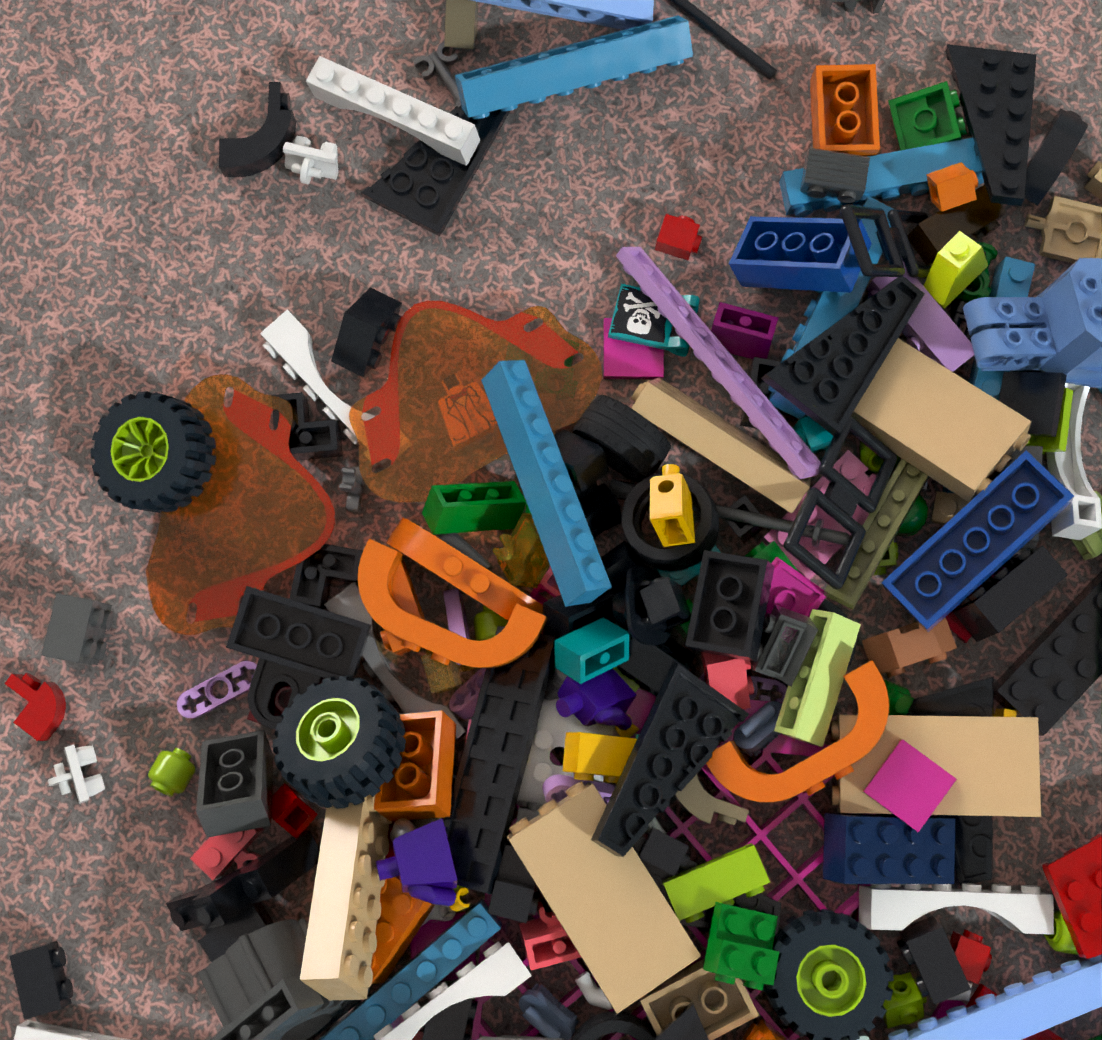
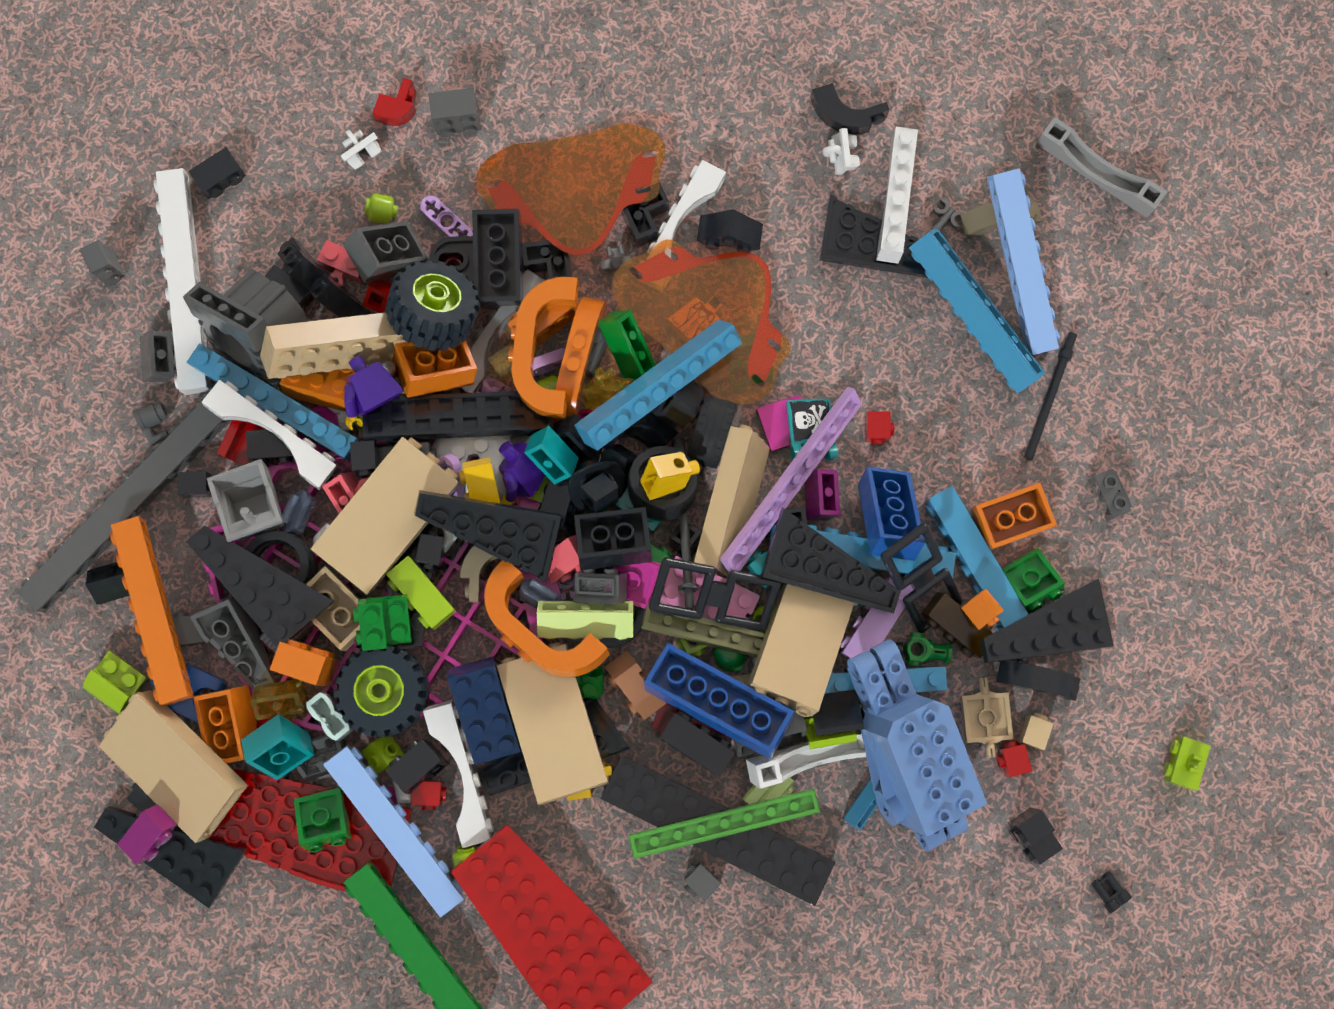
camera: 65 degrees right, 0 degrees up
(153, 452) = (592, 117): black wheel -> none
(834, 175) = (960, 521): dark grey brick -> none
(909, 785) = (530, 705): dark pink tile -> none
(955, 268) = (920, 630): neon yellow slope -> none

